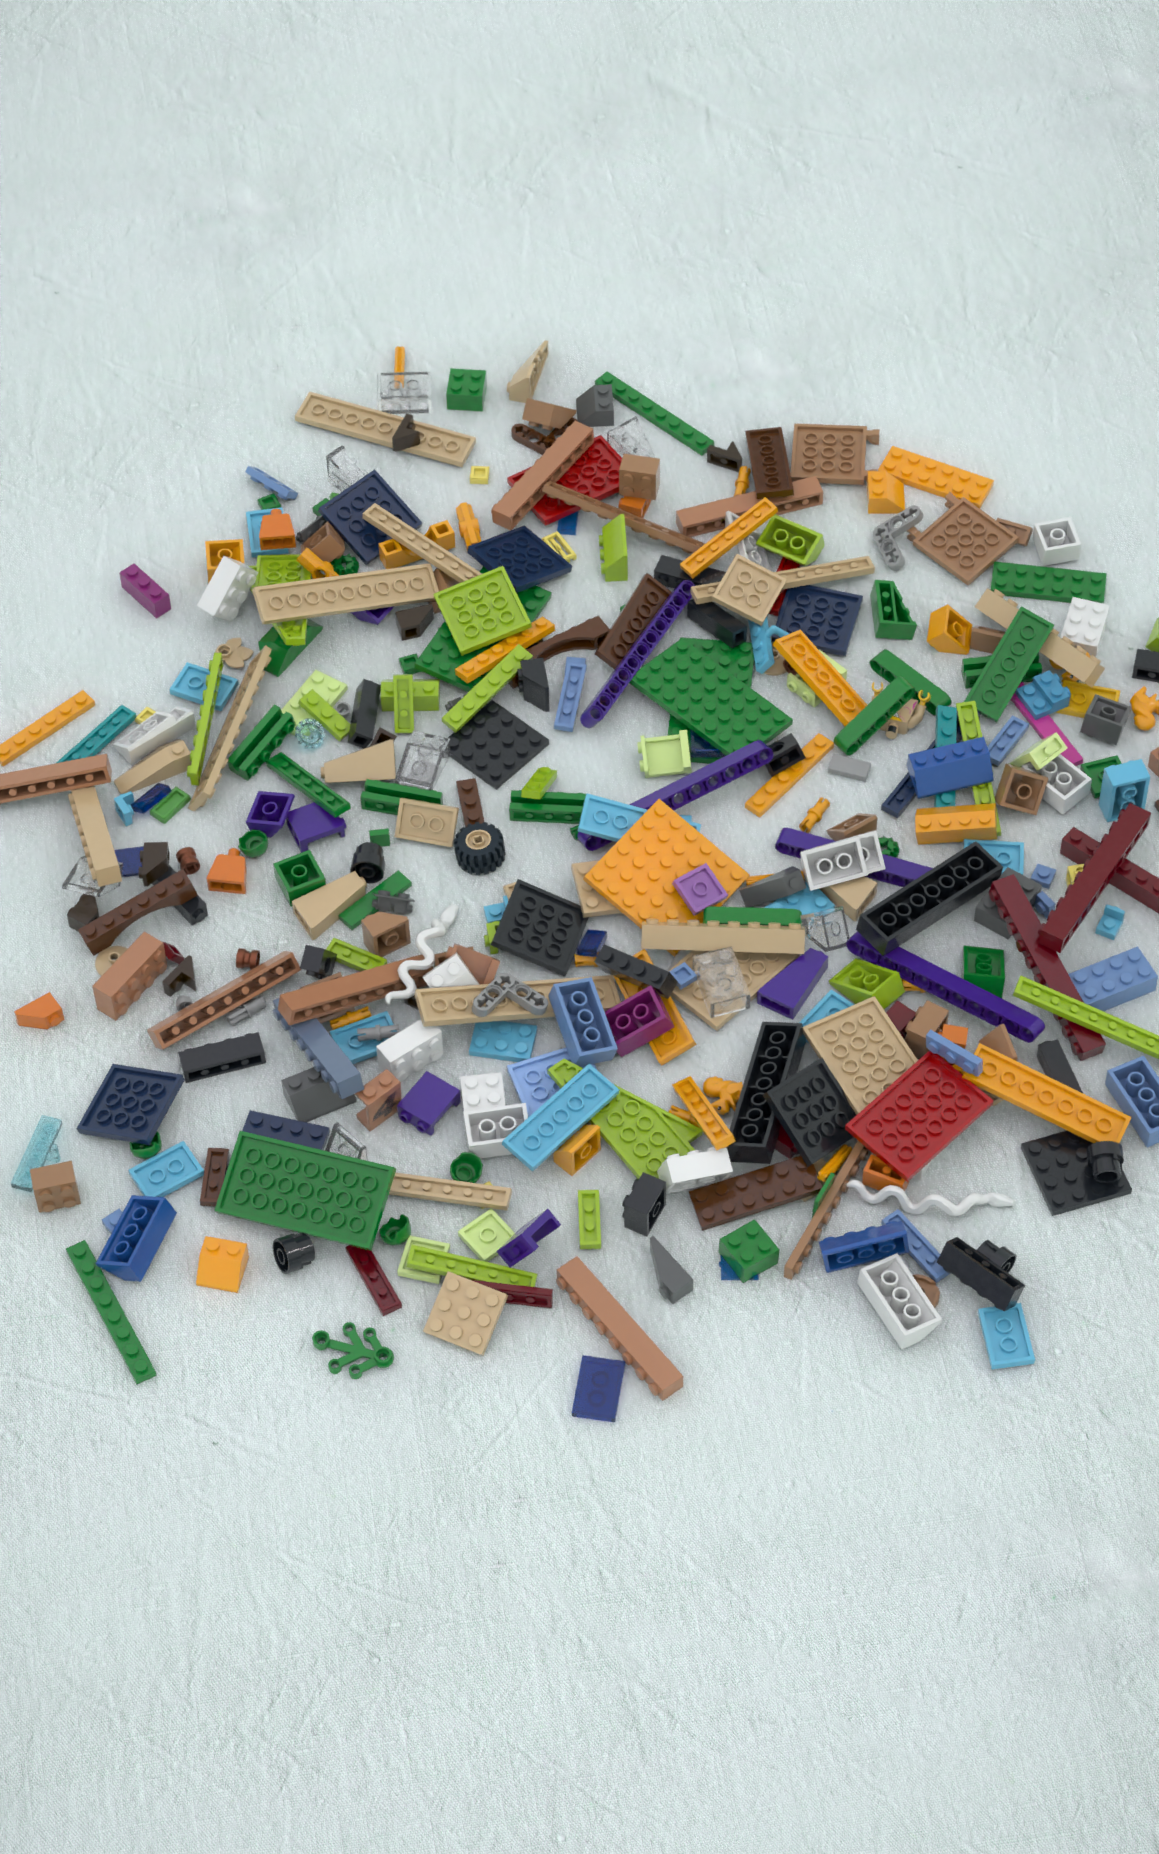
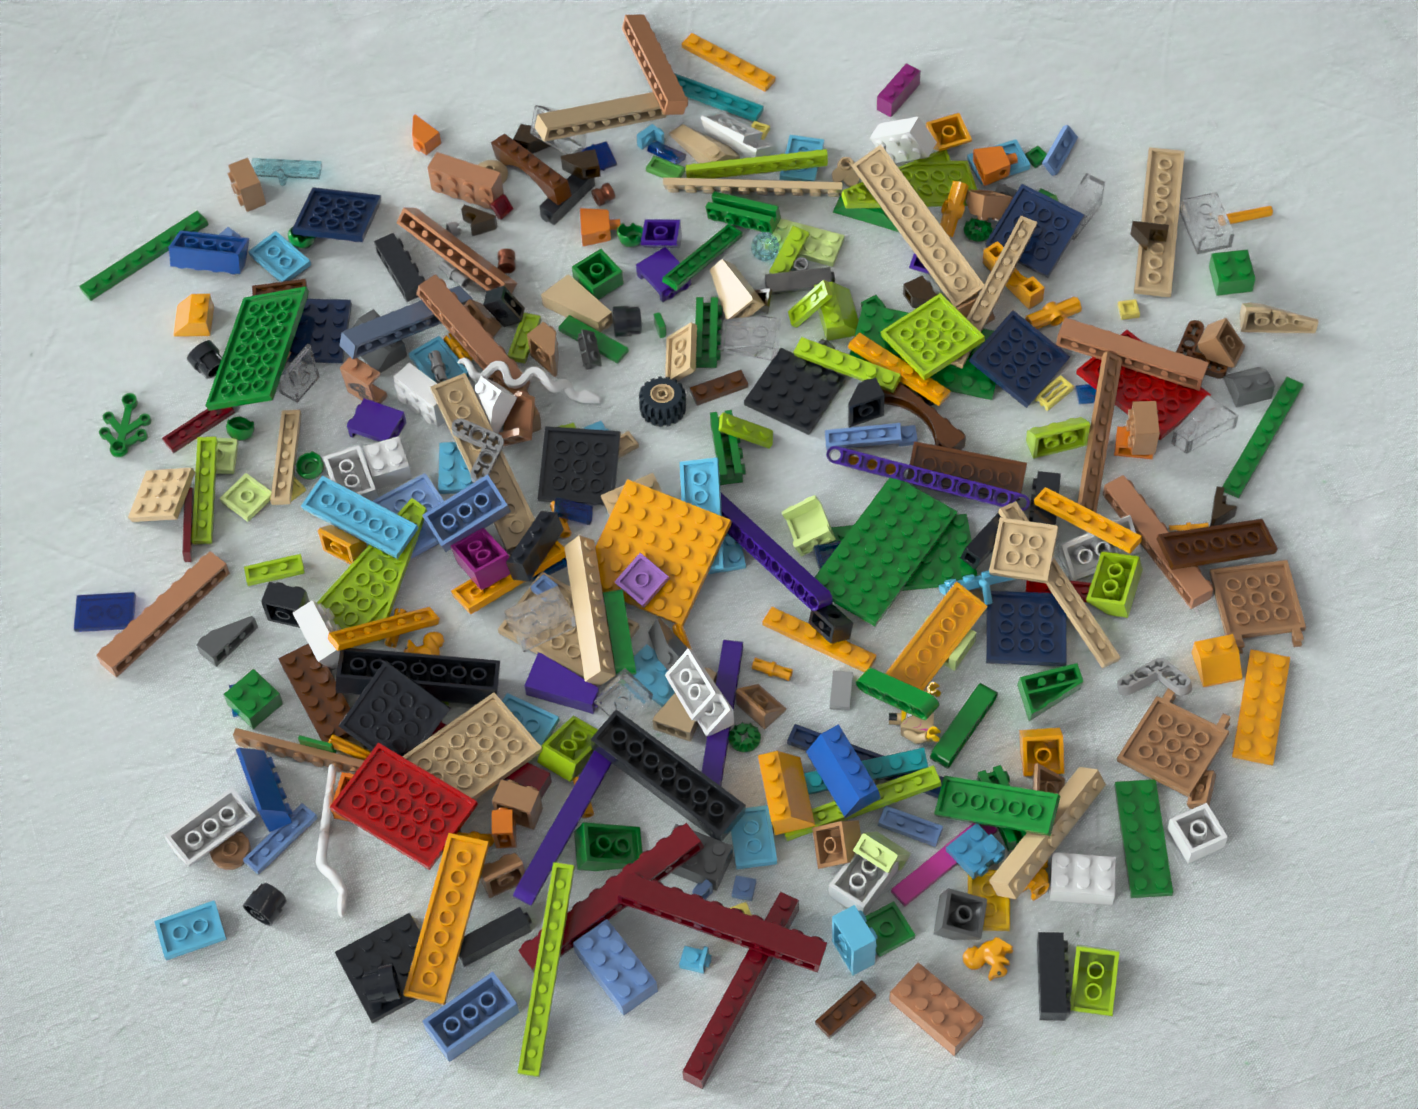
camera: 80 degrees right, 5 degrees up
(526, 1238) = (237, 516): dark purple panel -> none
(954, 1053) = (464, 817): medium blue plate -> none
(980, 1274) = (240, 890): black brick -> none

